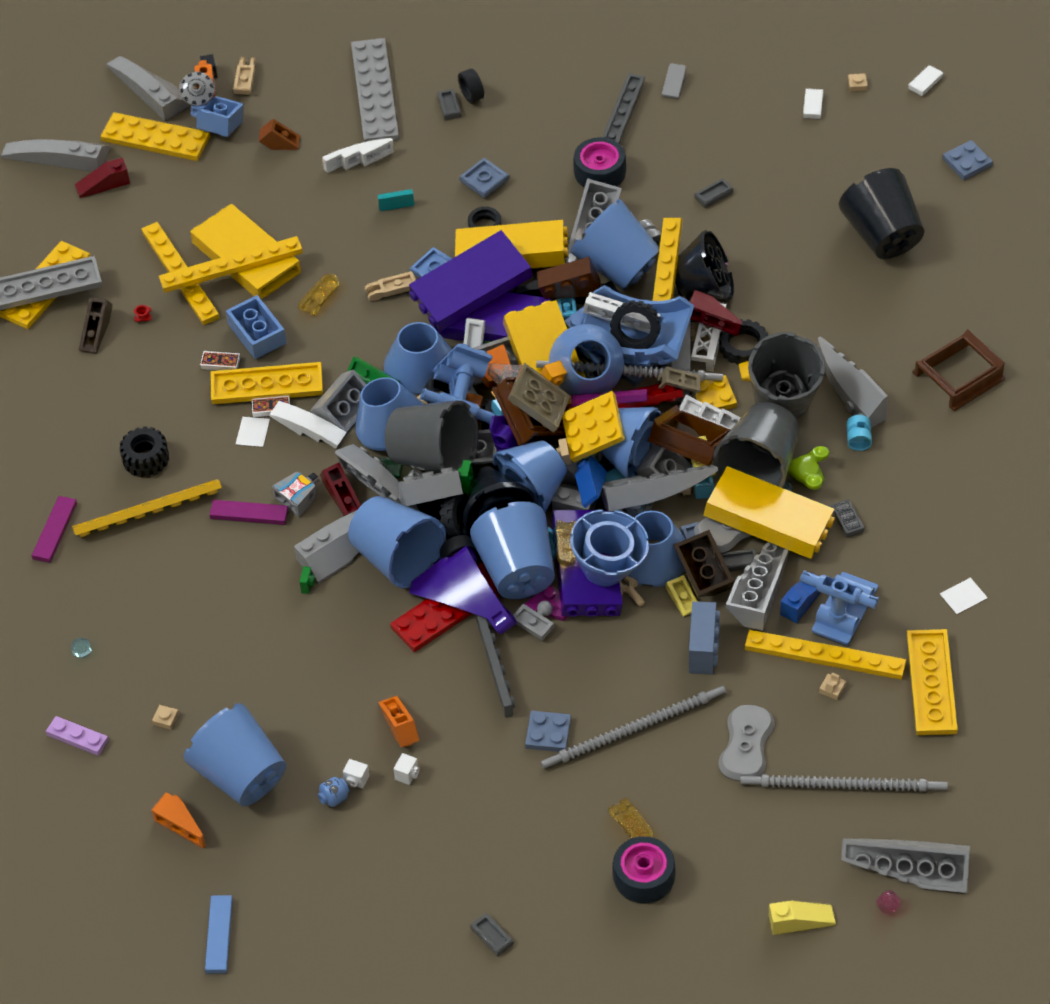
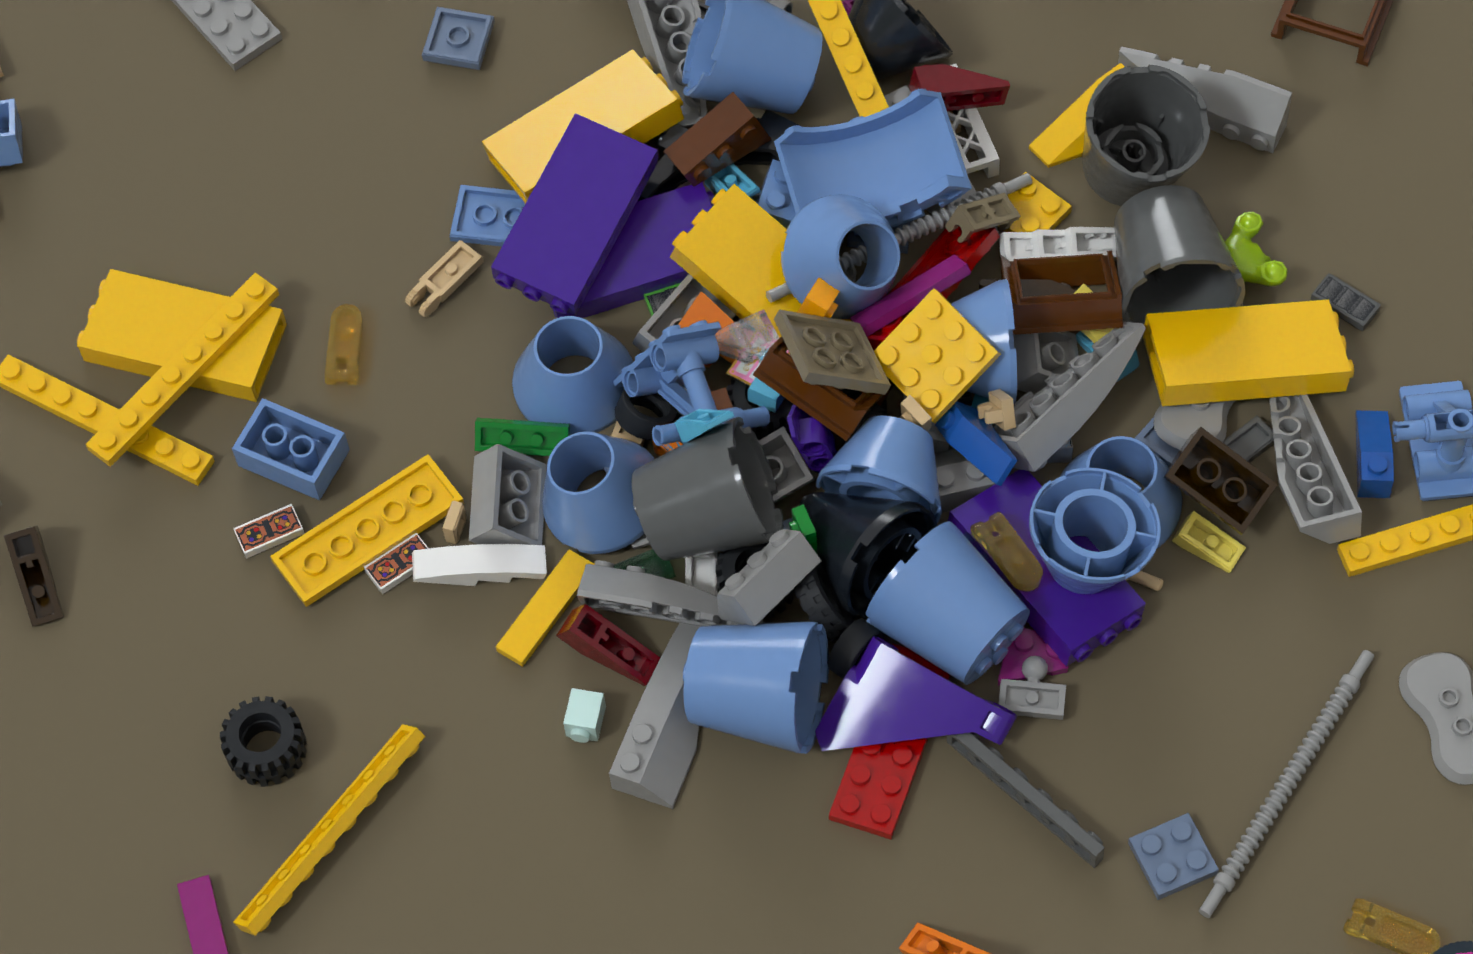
camera: 30 degrees left, 10 degrees up
(142, 313) = (91, 508): red plate -> none
(249, 512) = (488, 751): magenta tile -> none
(252, 431) = (398, 617): white sticker -> none
(278, 136) = (100, 124): dark orange slope -> none
(296, 492) = (540, 681): torso -> none
(305, 517) = (584, 715): none -> light aqua brick
(306, 580) = (658, 813): green plate -> none
(309, 399) = (454, 522): none -> tan tile
(318, 462) = (543, 609): none -> yellow tile
(359, 153) = (248, 88): white slope -> none
(396, 200) = (353, 138): teal tile -> none
(444, 395) = (700, 422): none -> medium azure slope
(474, 332) = (630, 298): white tile -> none
(484, 213) = (504, 91): black tyre -> none
(605, 308) = (839, 160): white fence -> none
(609, 471) = (998, 410): none -> tan tile
(643, 309) = (861, 146): black tyre -> none
(704, 638) = (1294, 593): sand blue brick -> none
(740, 356) = (1023, 133): black tyre -> none
(859, 432) = (1274, 166): medium azure wheel -> none

